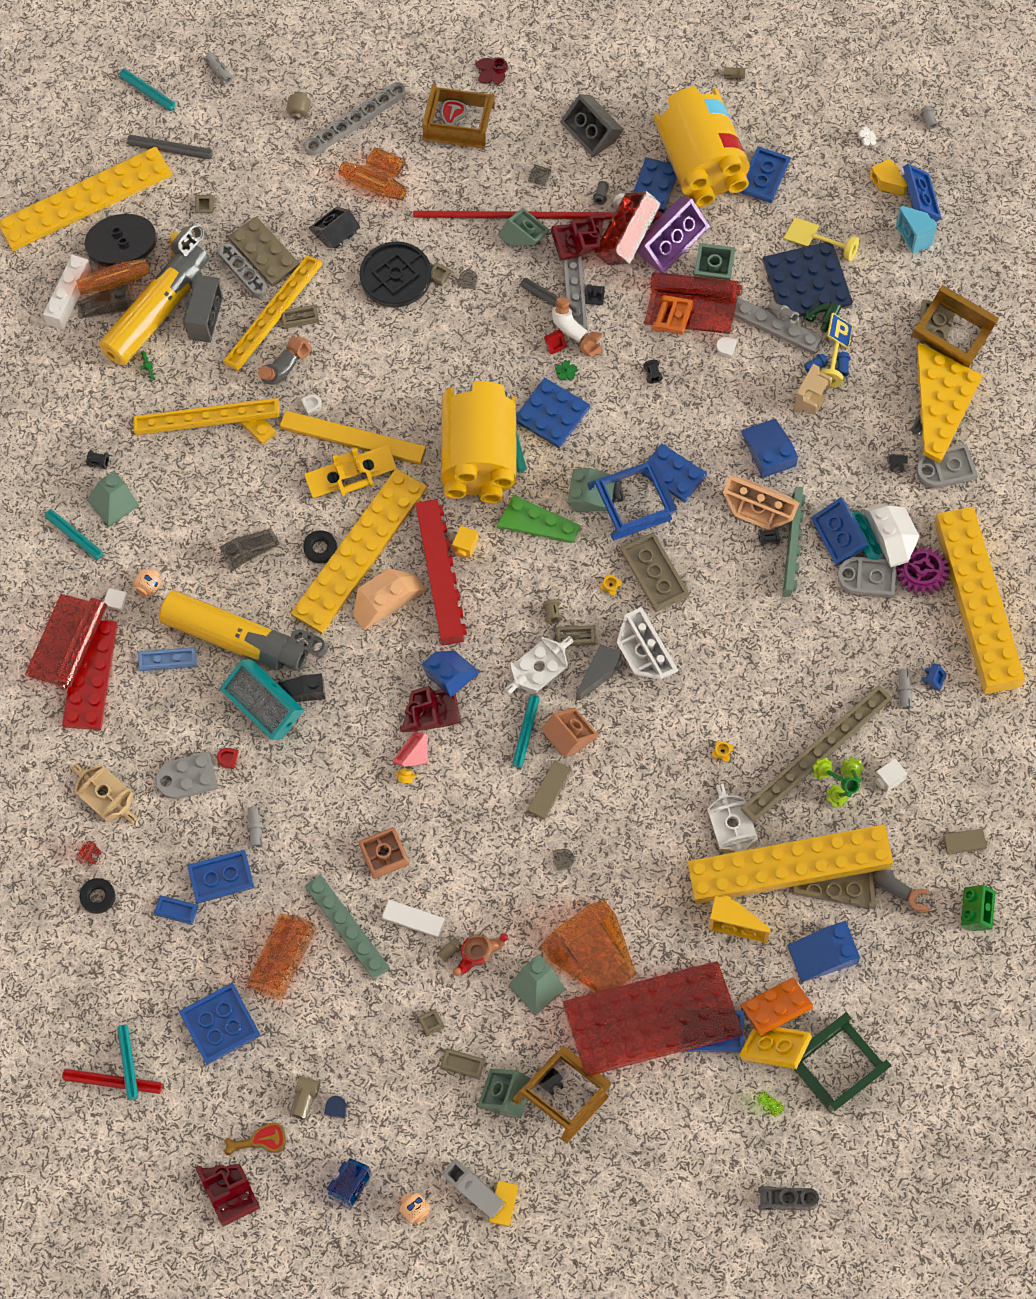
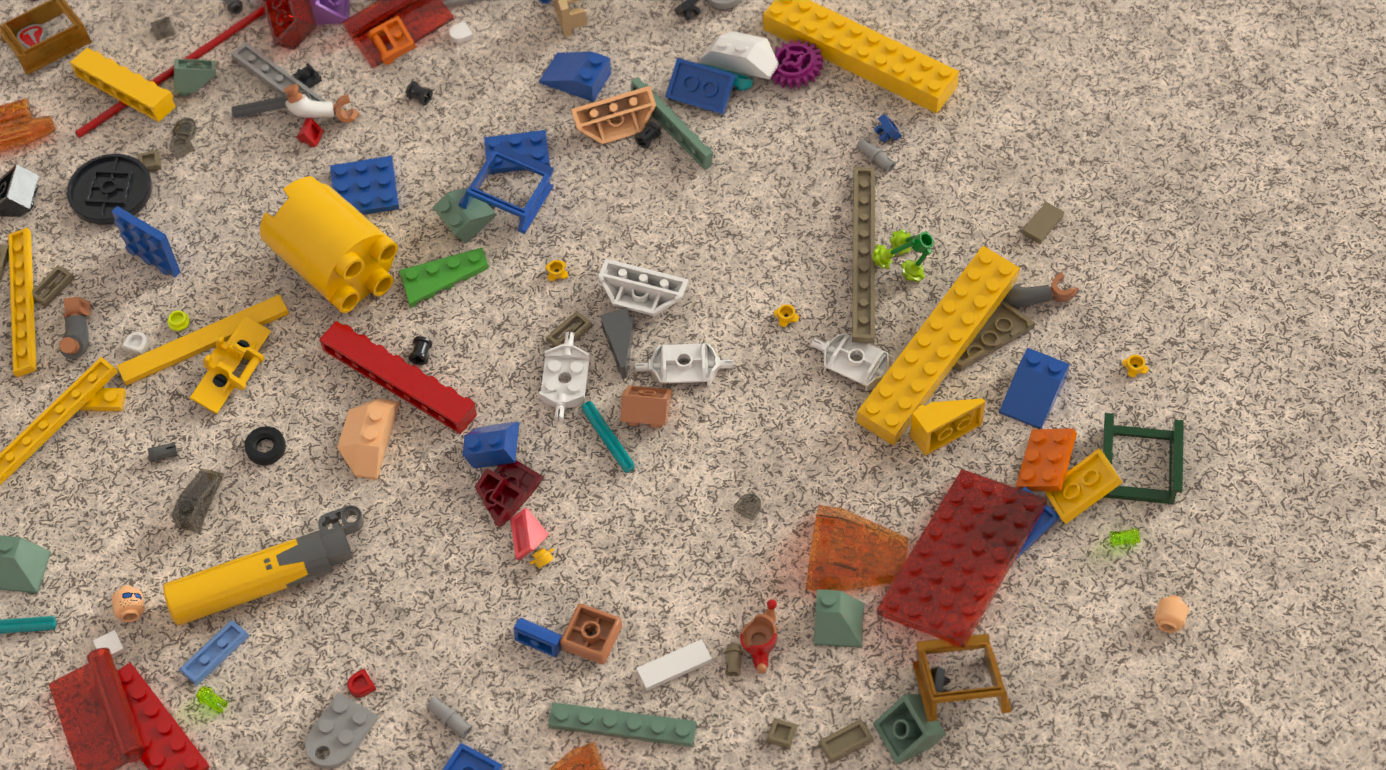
camera: 45 degrees left, 10 degrees down
(138, 688) = (209, 698): none -> clear neon green pin
(256, 495) = (162, 451): none -> dark grey pin
(261, 699) = (345, 604): brick -> none
(305, 687) = (368, 572): black slope -> none
(349, 410) = (178, 320): none -> neon yellow plate
(352, 824) = (537, 637): none -> blue brick
(358, 551) = (305, 422): yellow plate -> none
(373, 338) = (146, 242): none -> blue plate
(465, 542) = (395, 336): yellow brick -> none
(471, 201) = (123, 84): none -> yellow brick
(471, 565) = (420, 350): none -> black bush
(483, 267) = (185, 127): none -> clear smoke tile
(549, 790) = (678, 464): dark tan tile -> none
(552, 611) = (529, 328): dark tan bush -> none
(566, 370) = (342, 148): green plant -> none
(578, 236) = (248, 43): dark red slope -> none
(633, 736) = (701, 368): none -> white plate
(654, 572) = (583, 232): dark tan plate -> none
(741, 1180) = (1171, 614): none -> light nougat head
(776, 1202) = (1210, 604): dark grey piece -> none
(869, 577) = (758, 102): light grey plate -> none
(890, 775) = (937, 221): white brick -> none
(916, 996) = (1136, 360): none -> yellow plate
(978, 908) = (1110, 256): green brick -> none

